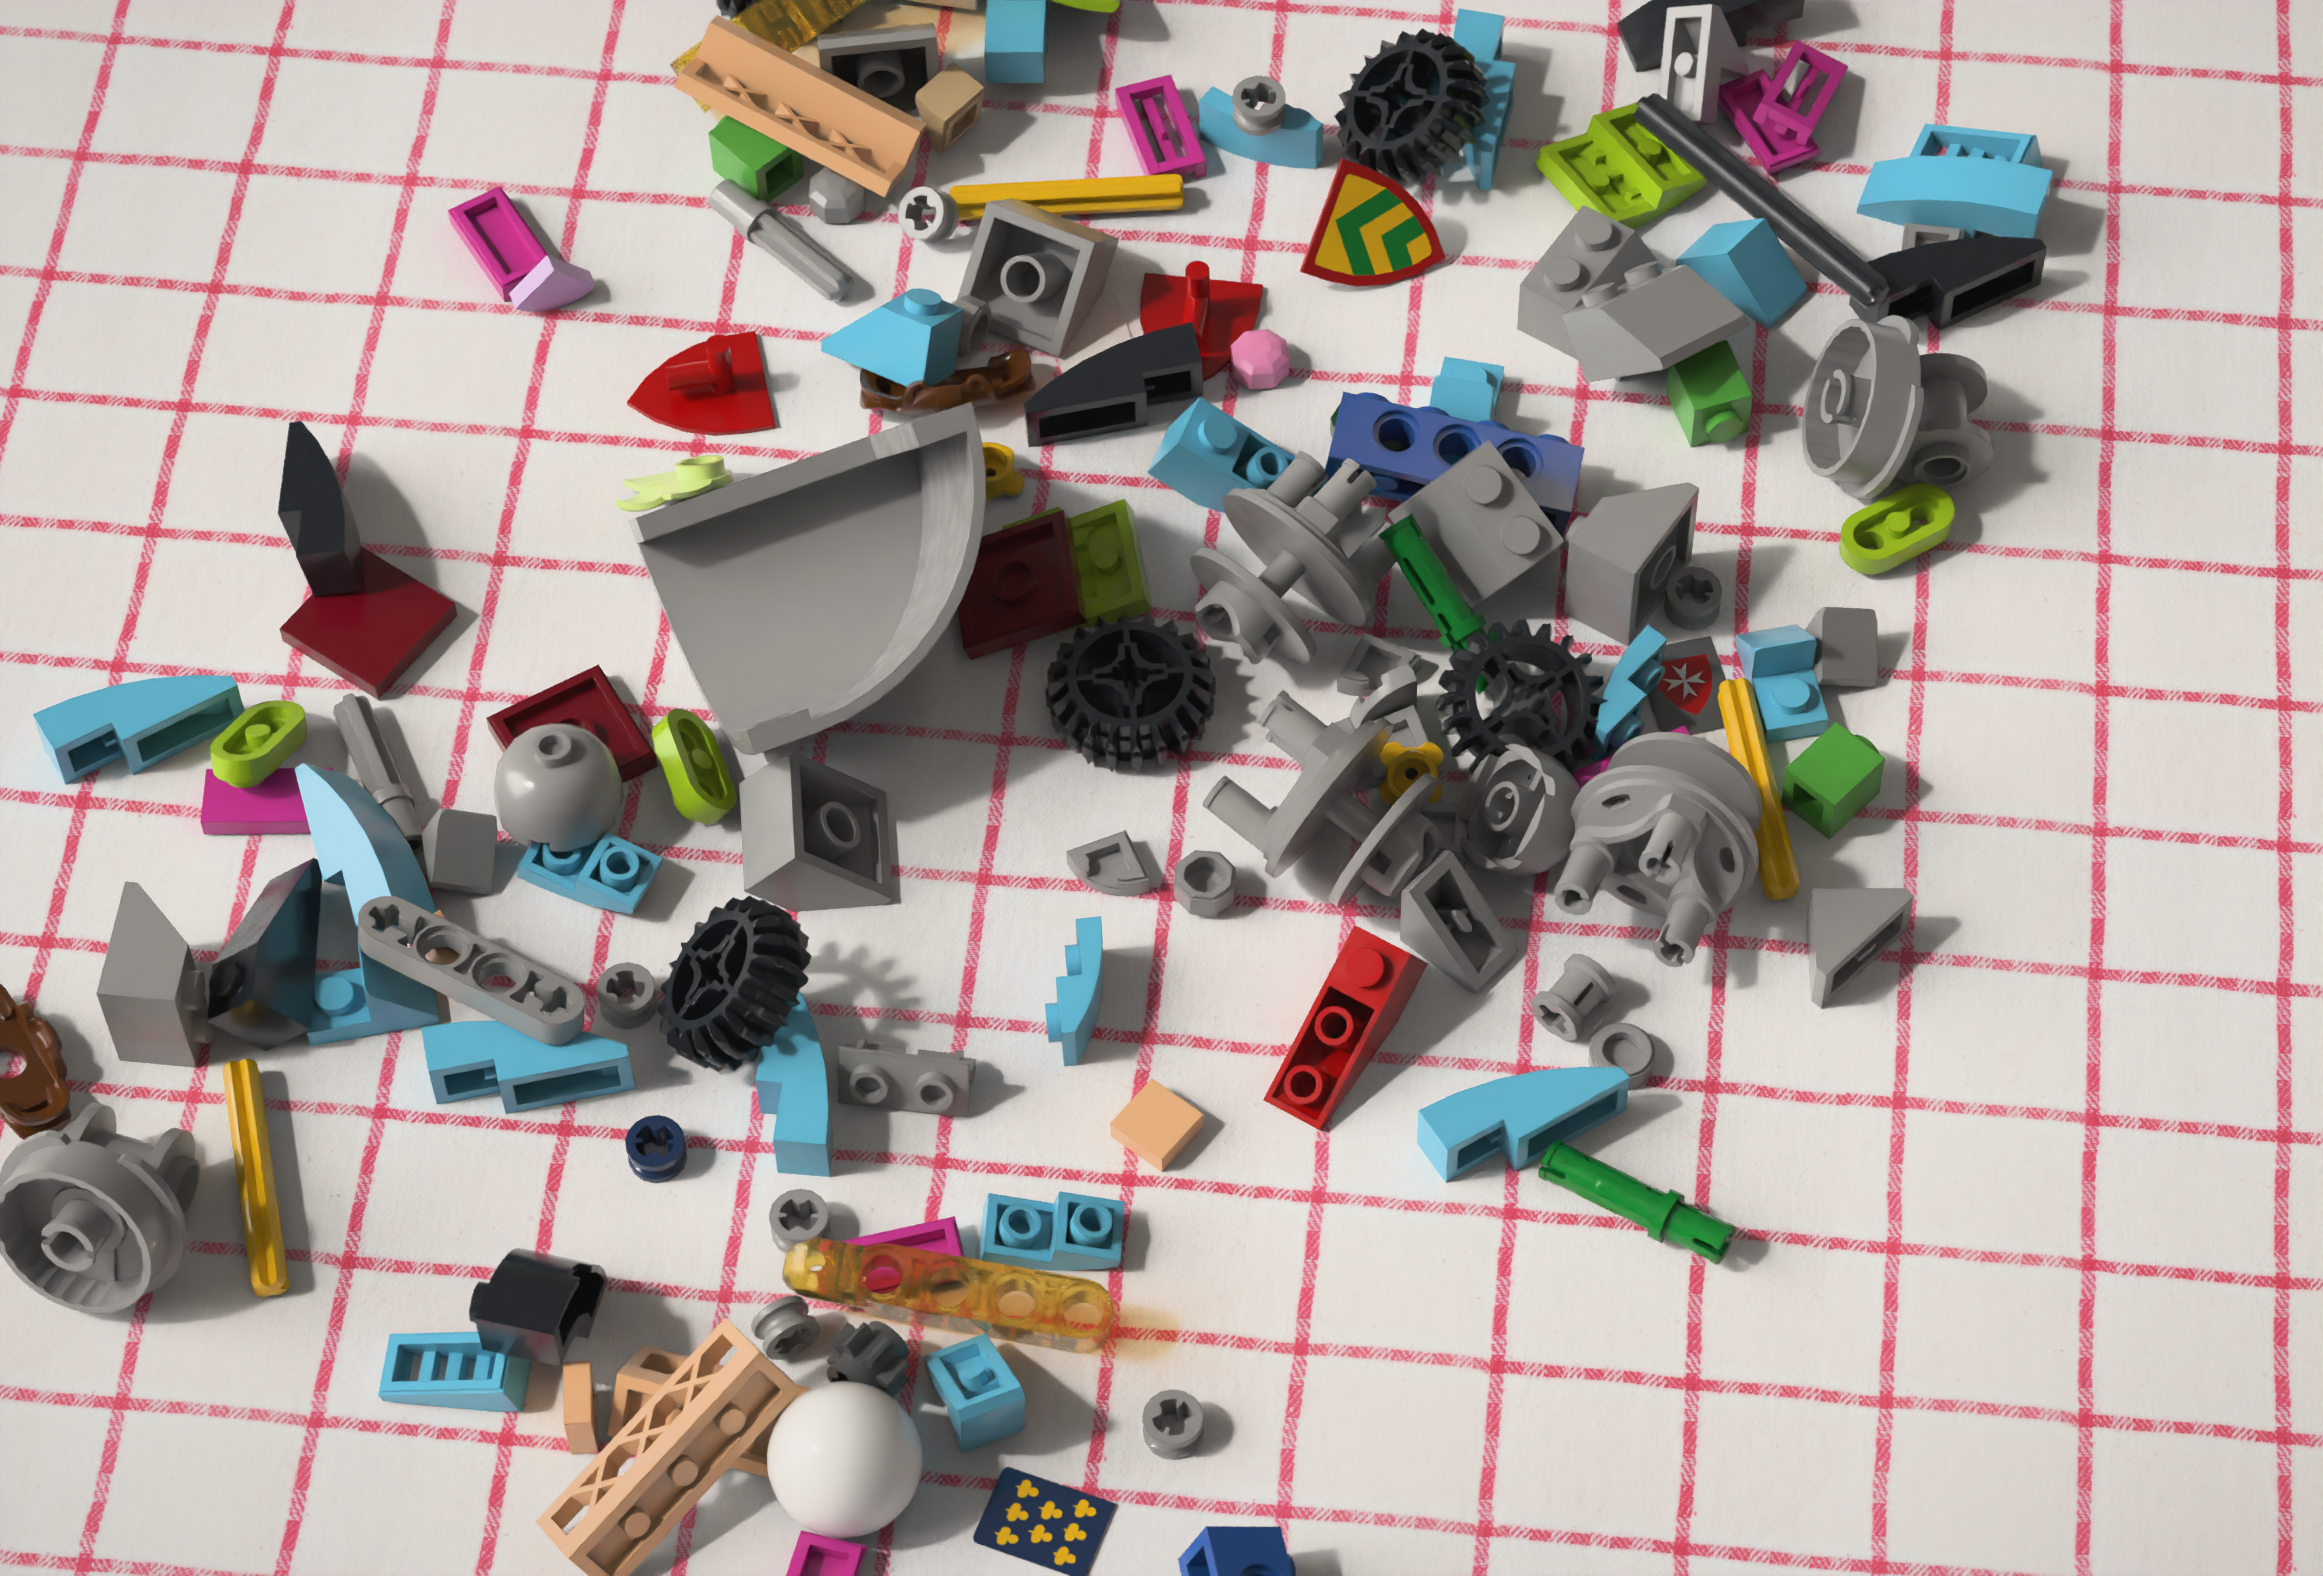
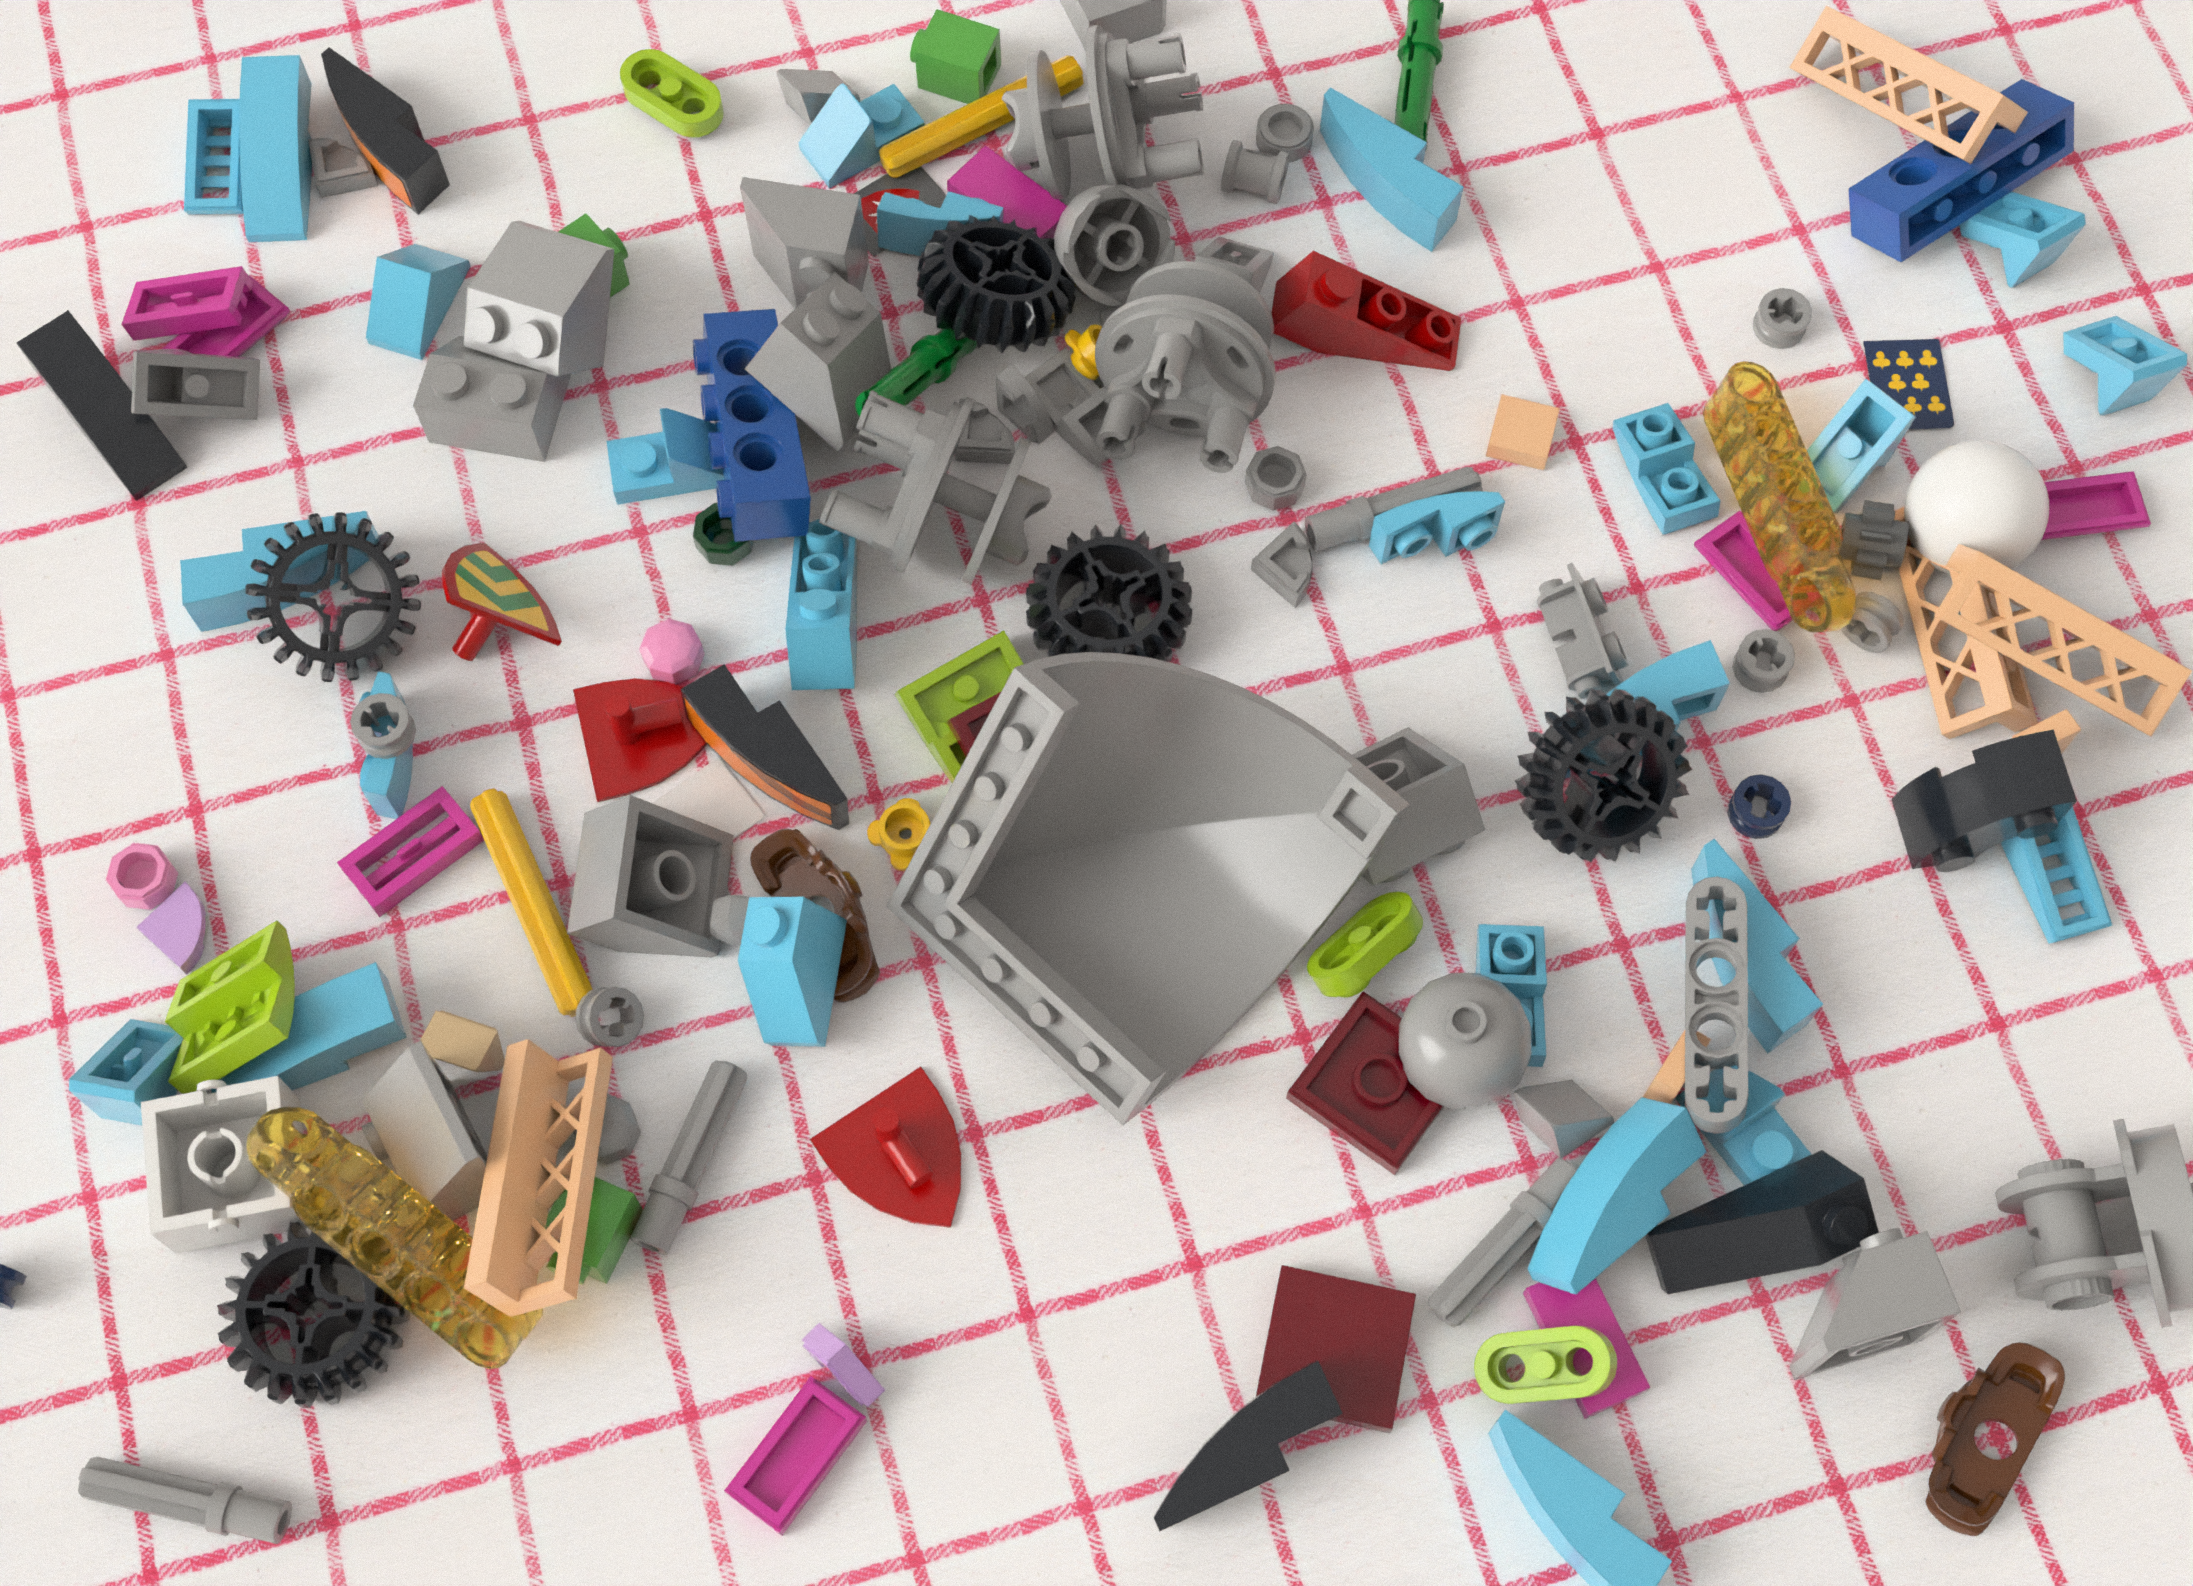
camera: 115 degrees left, 10 degrees up
(255, 1178) = (1976, 1137): yellow axle -> none
(644, 1003) = (1631, 882): light grey bush -> none
(690, 479) = (1064, 1108): yellowish green plate -> none
(1124, 945) = (1356, 518): none -> light grey axle
(1619, 170) = (326, 430): lime slope -> none
(1762, 201) = (345, 280): black axle -> none
(1892, 413) = (570, 74): light grey piece -> none

